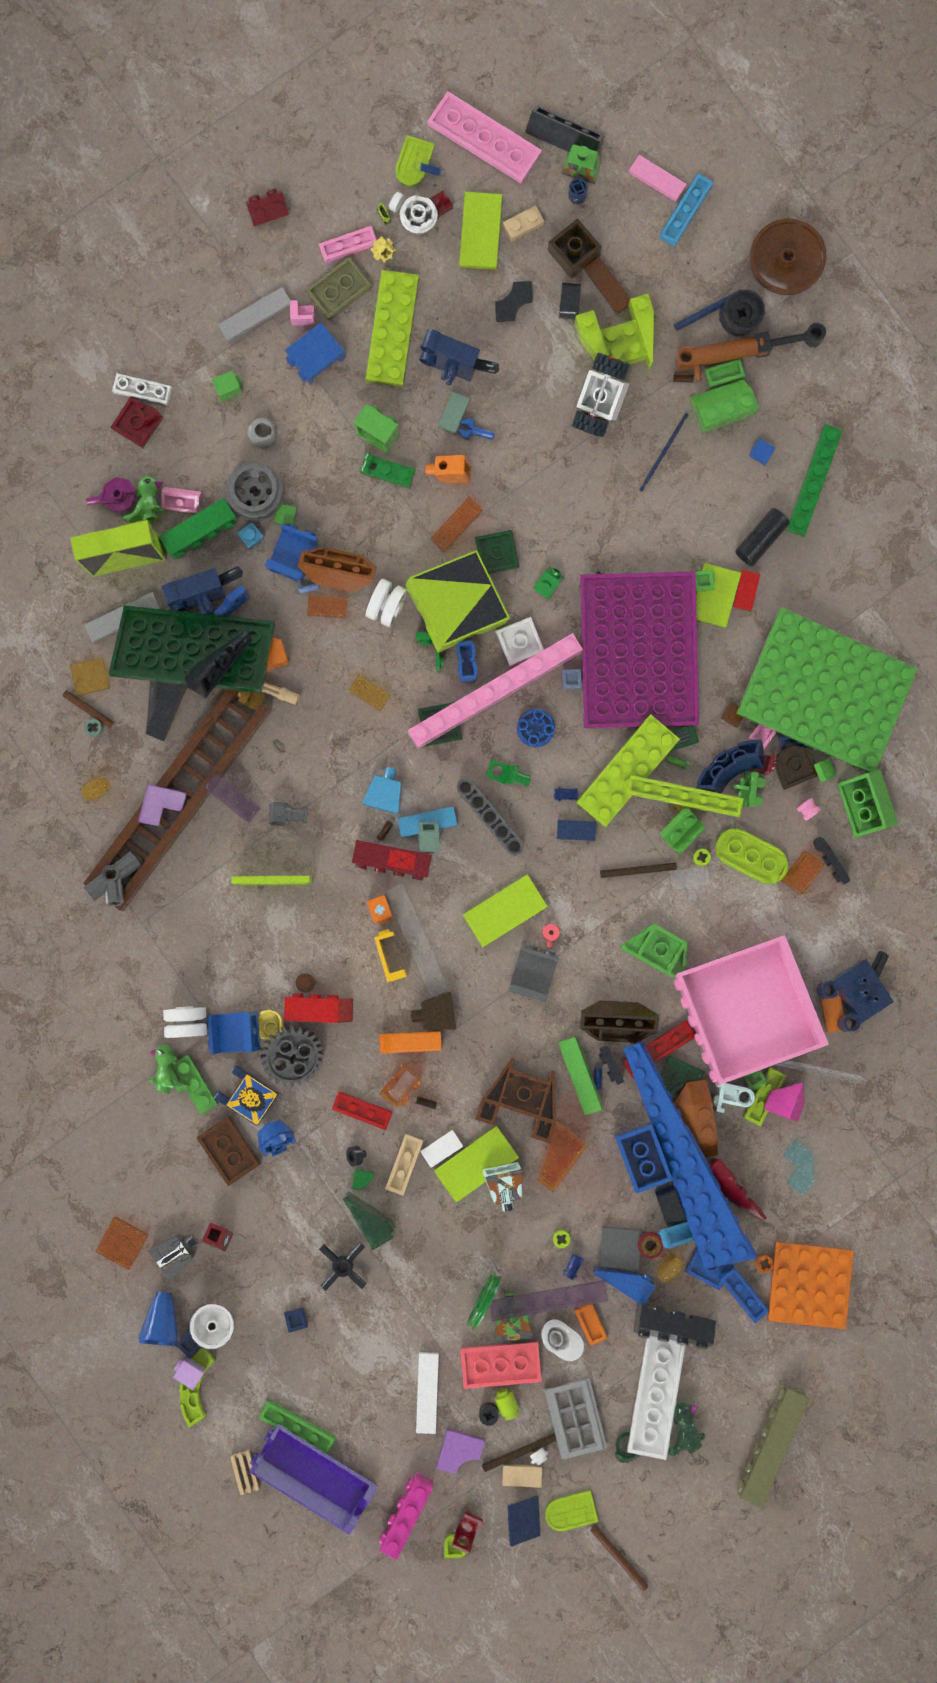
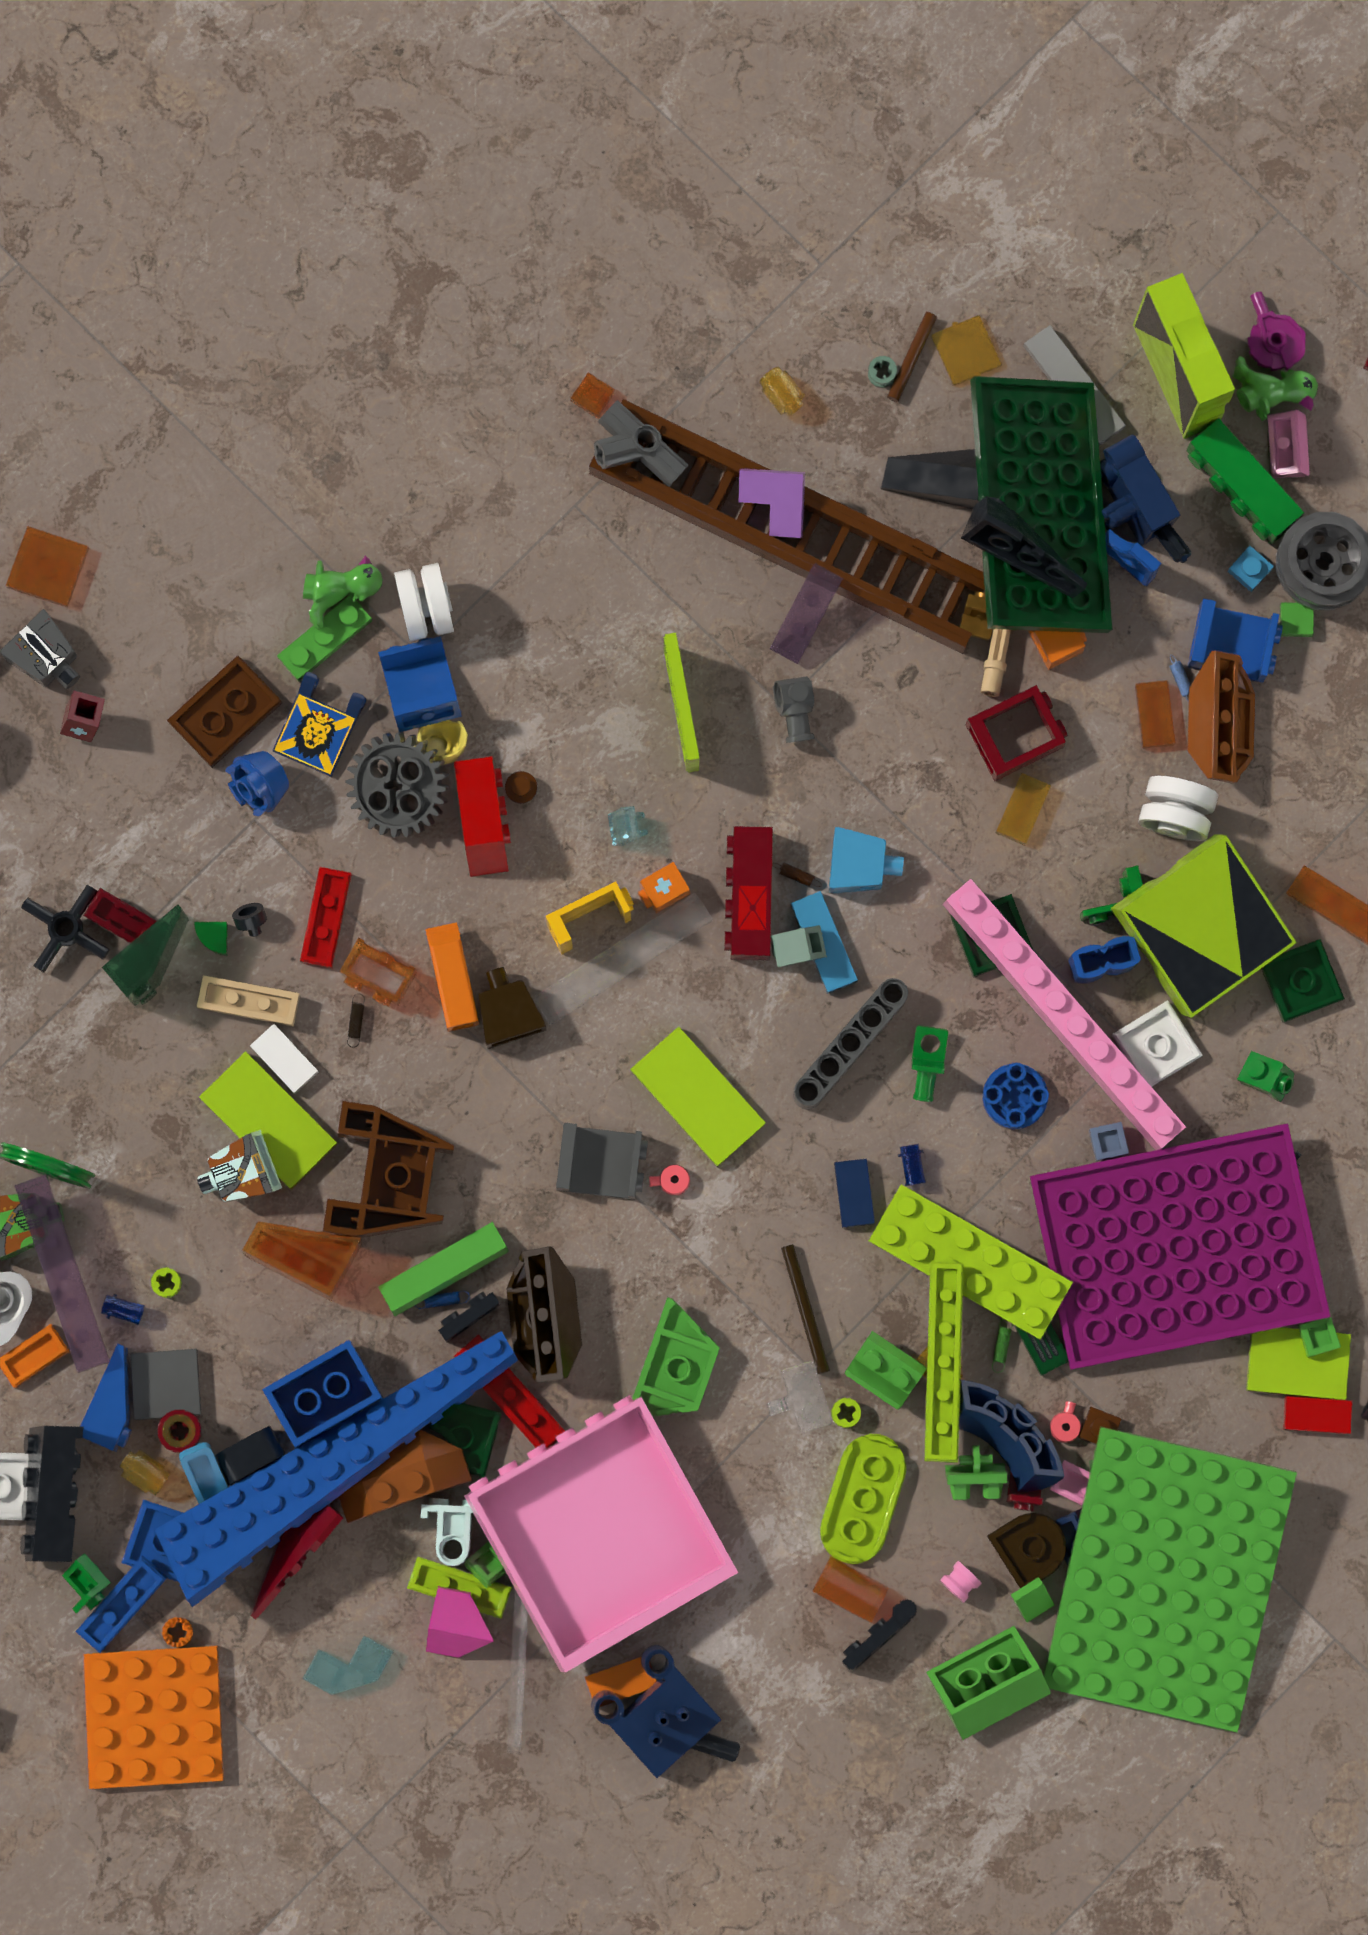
camera: 75 degrees right, 5 degrees down
(76, 901) = (592, 395): none -> clear orange tile
(330, 706) = (987, 747): none -> dark red window
(339, 926) = (624, 825): none -> clear light blue tile
(341, 1233) = (117, 916): none -> dark red plate
(724, 733) = (1069, 1418): none -> coral piece
(728, 1311) = (87, 1582): none -> green bracket

